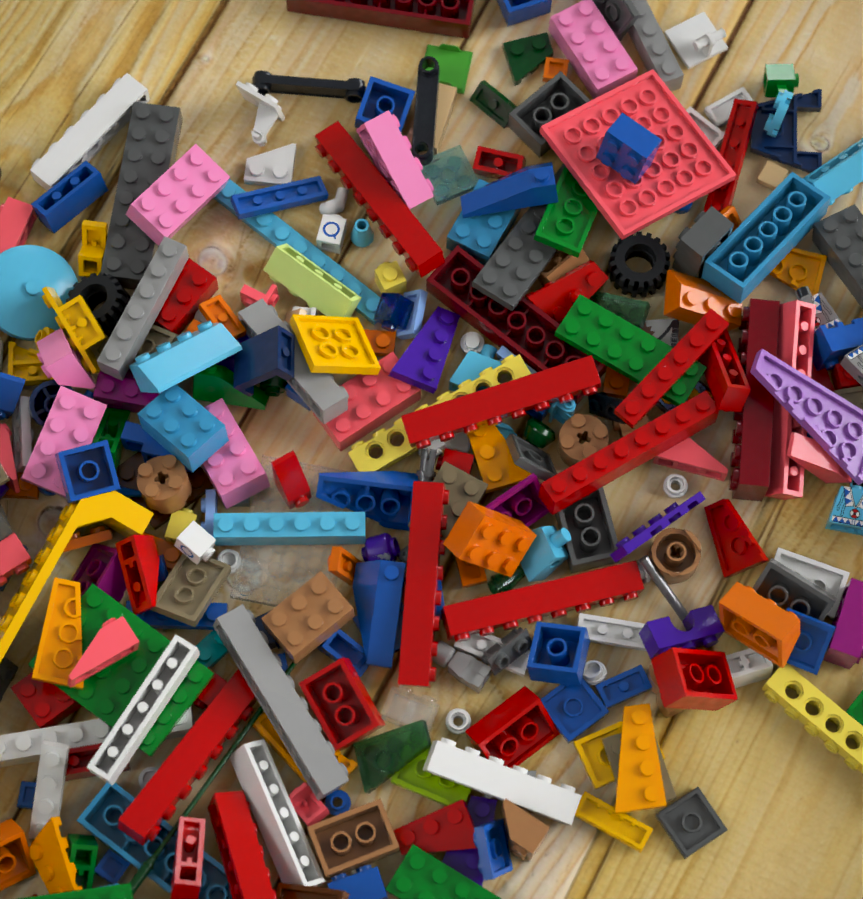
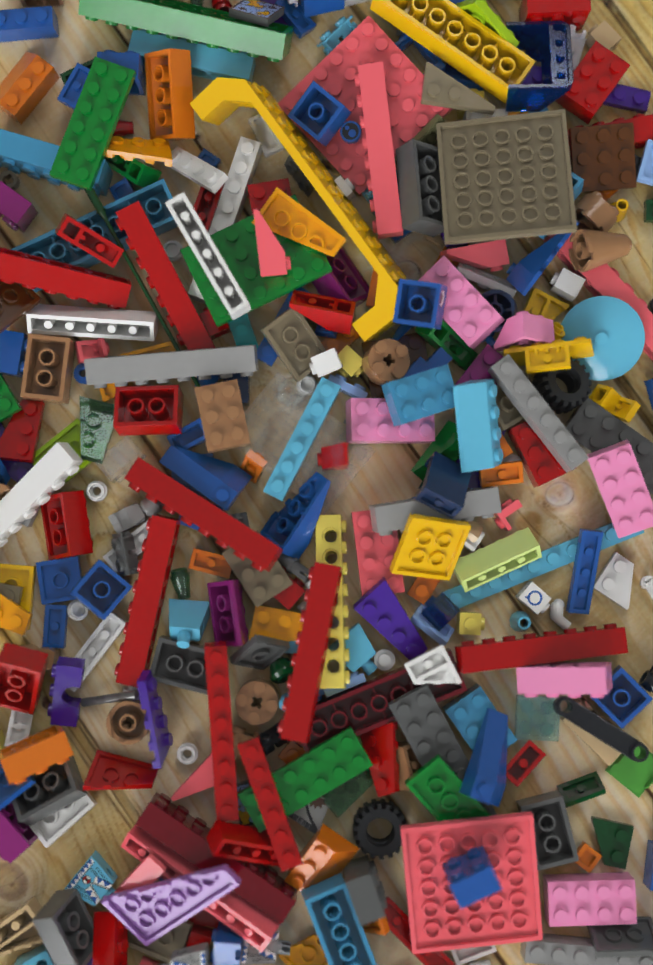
camera: 120 degrees right, 15 degrees up
(381, 548) = (253, 501): dark purple head -> none
(453, 285) = (432, 668): none -> white wing
(489, 539) = (207, 583): orange brick -> none

